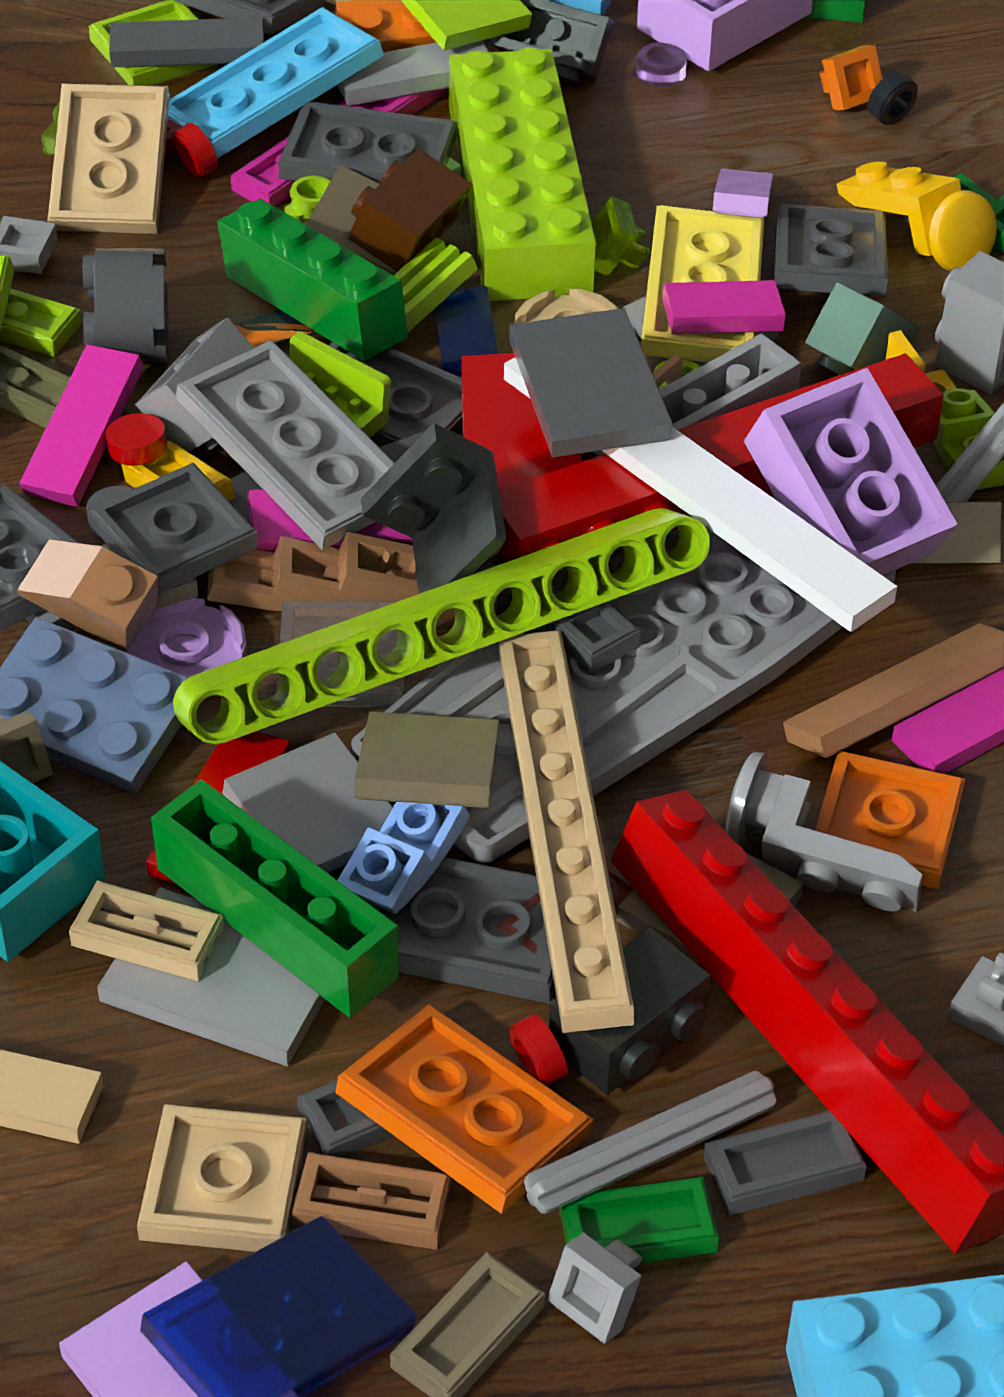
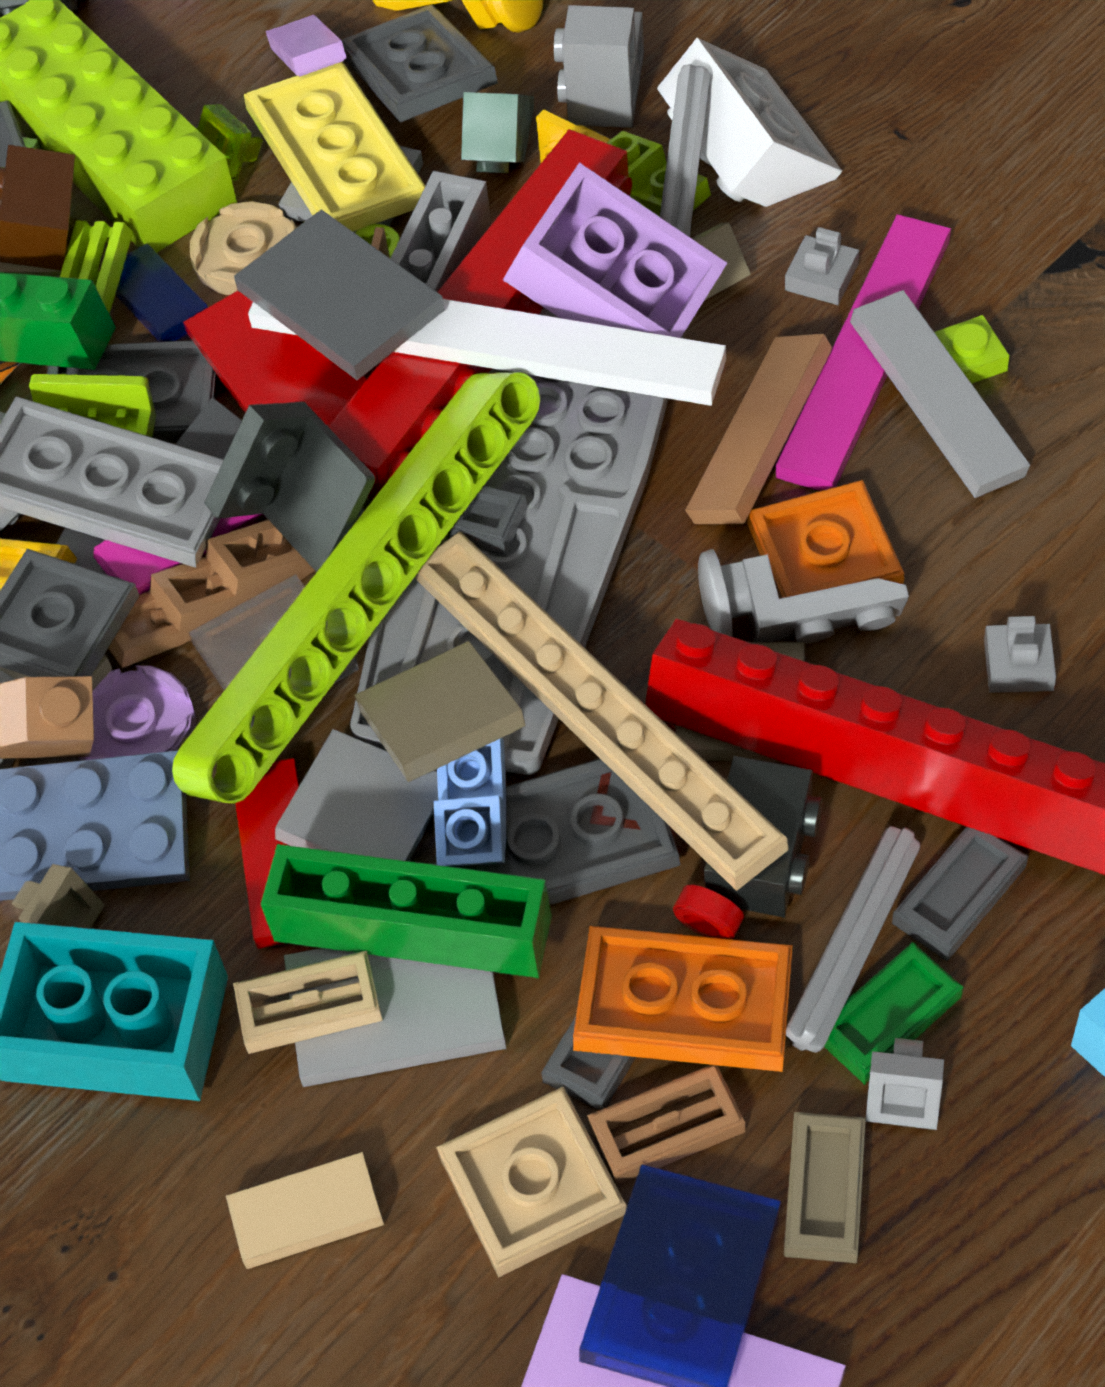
camera: 25 degrees left, 10 degrees up
(723, 307) = (376, 161): dark pink tile -> none

